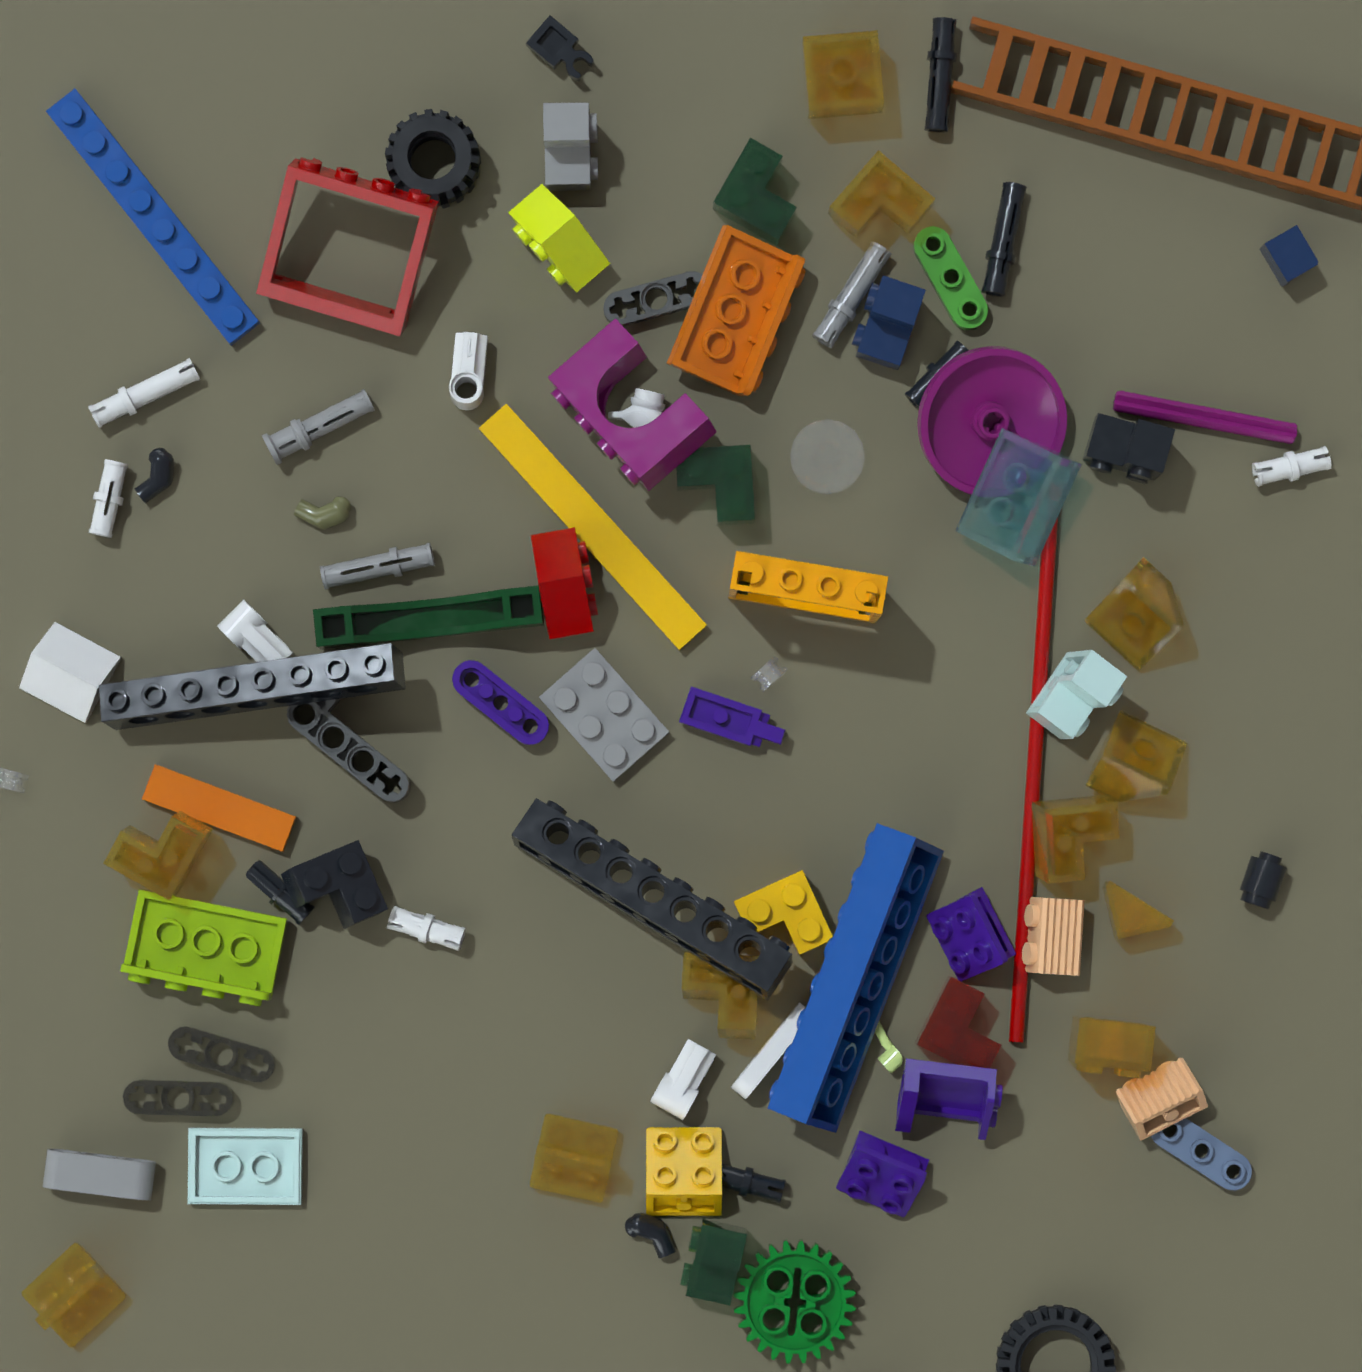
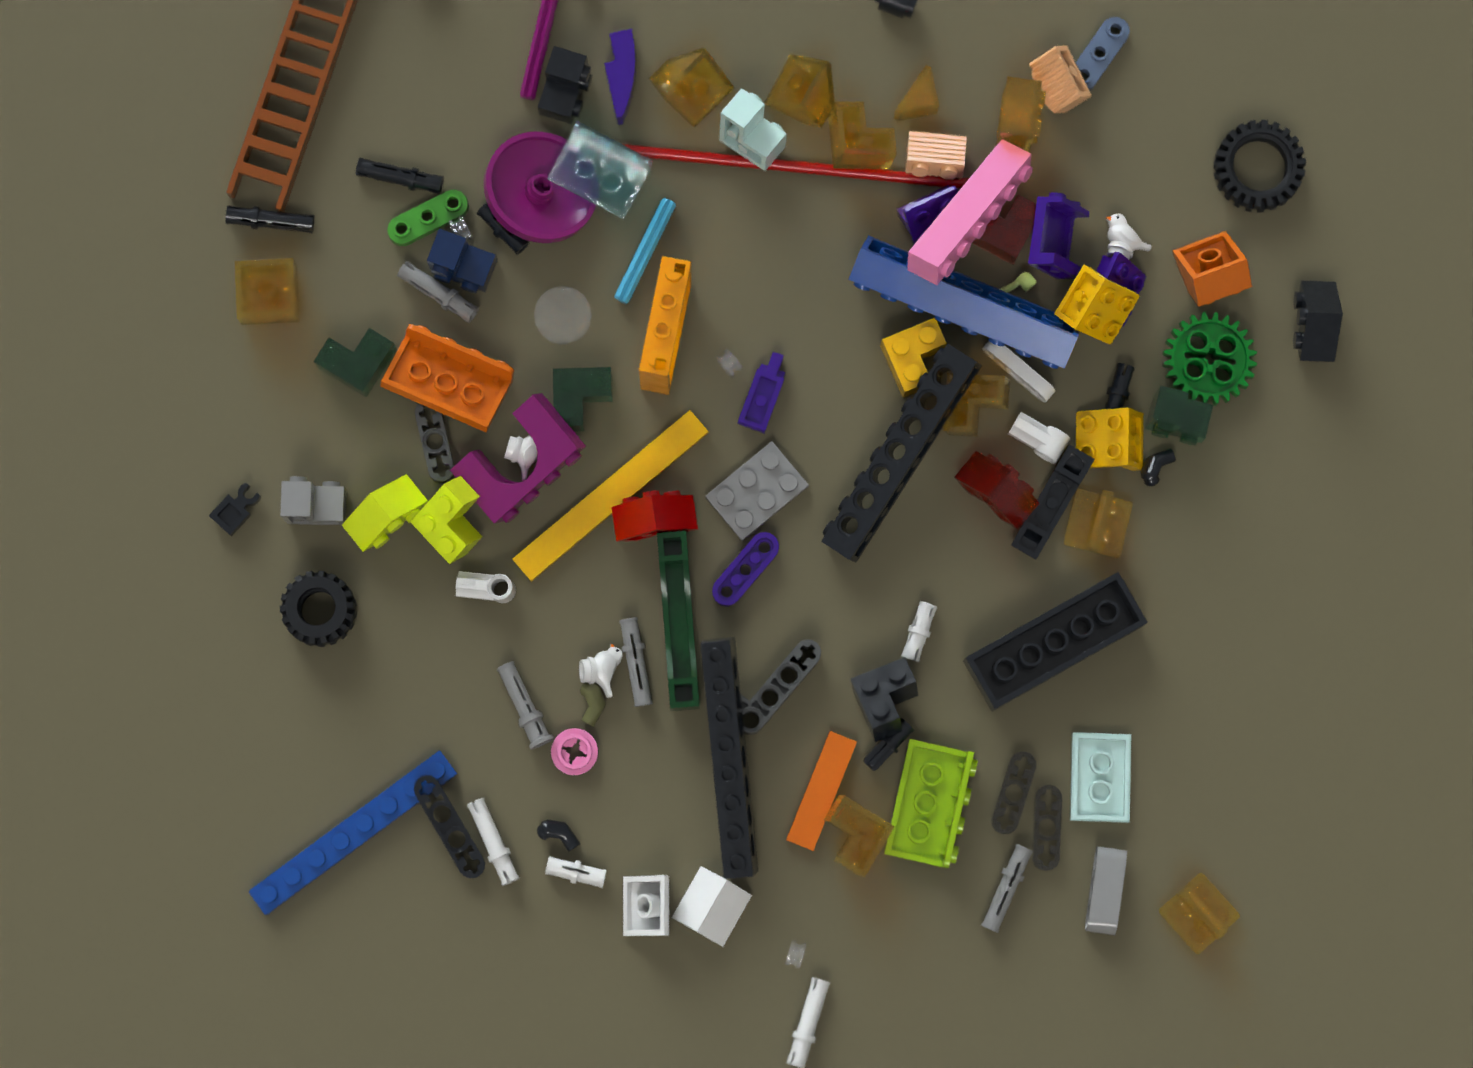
camera: 90 degrees left, 5 degrees down
(66, 590) = (646, 905): none -> white slope
(99, 1047) = (1007, 888): none -> light grey pin
(158, 332) = (445, 828): none -> black beam
(250, 632) = (684, 762): white piece -> none
(254, 475) = (567, 739): none -> bright pink gear
(328, 301) = (428, 689): red window -> none
(367, 521) = (601, 668): none -> white animal
(414, 1103) = (1055, 641): none -> black brick
(544, 316) = (443, 520): none -> neon yellow brick
(598, 1097) = (1052, 502): none -> black slope
(613, 1026) = (998, 488): none -> clear red brick
(853, 1149) = (1096, 305): none -> yellow bracket
(884, 188) = (357, 264): clear yellow brick -> none
(915, 560) = (645, 250): none -> medium azure axle
(915, 1304) = (1213, 268): none -> orange slope
(934, 320) = (460, 228): none -> clear bush
(951, 1185) = (1123, 237): none -> white animal
(970, 980) = (969, 212): none -> bright pink brick
(1150, 522) = (621, 72): none -> dark purple slope

